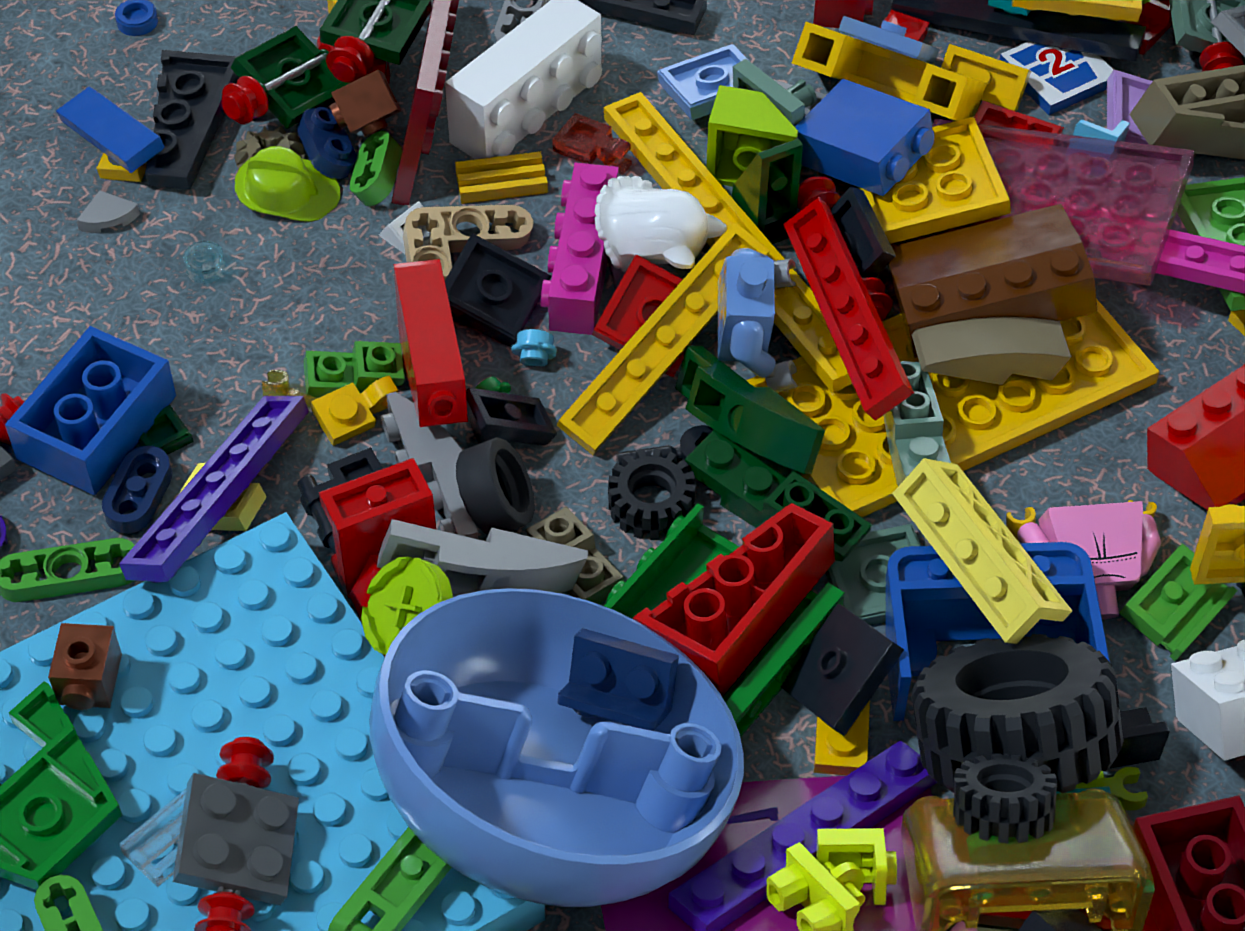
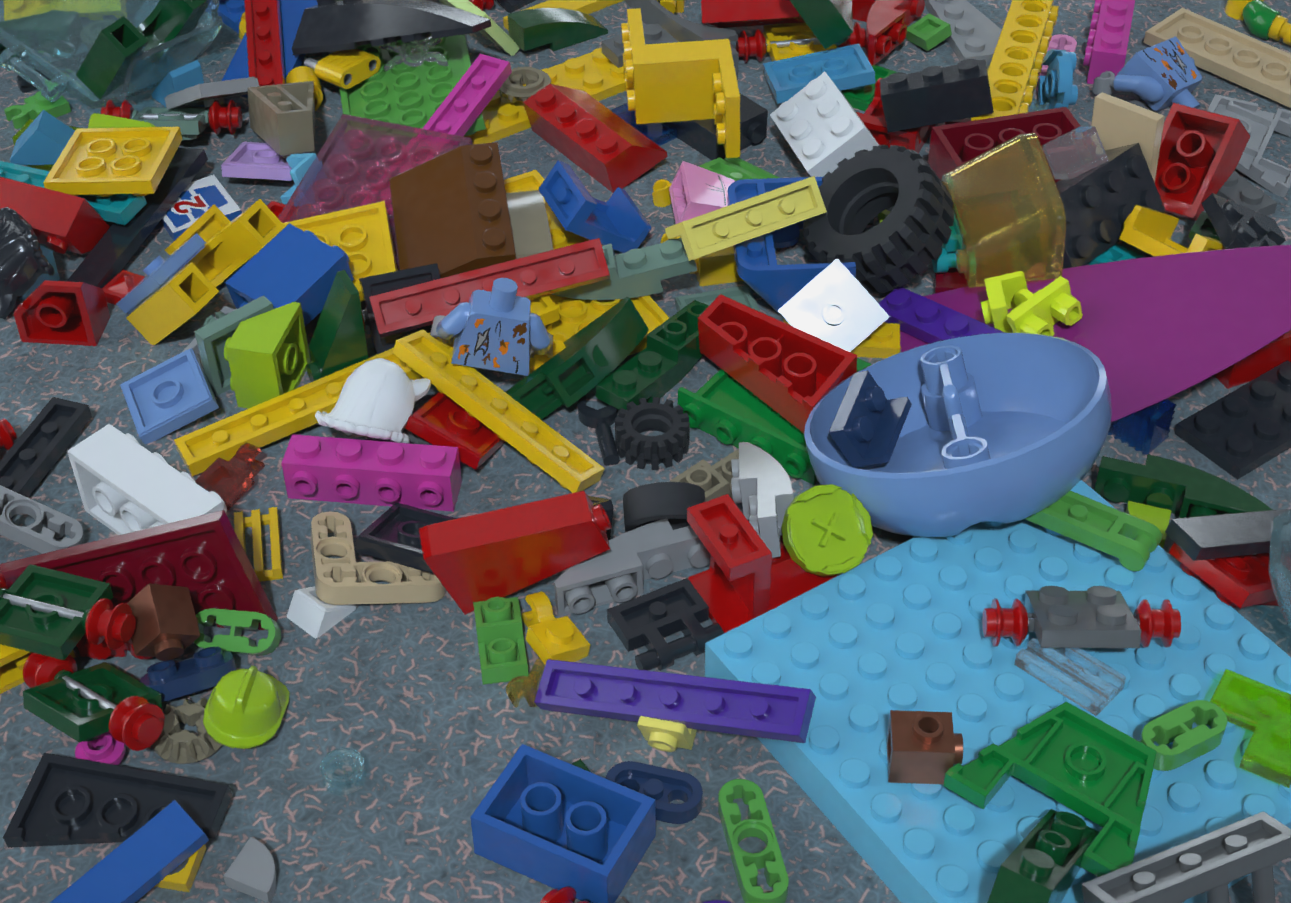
camera: 90 degrees left, 10 degrees down
(534, 347) = (485, 502): medium azure plate -> none
(1004, 798) = (978, 194): black tyre -> none
(1045, 422) = (613, 221): none -> blue panel

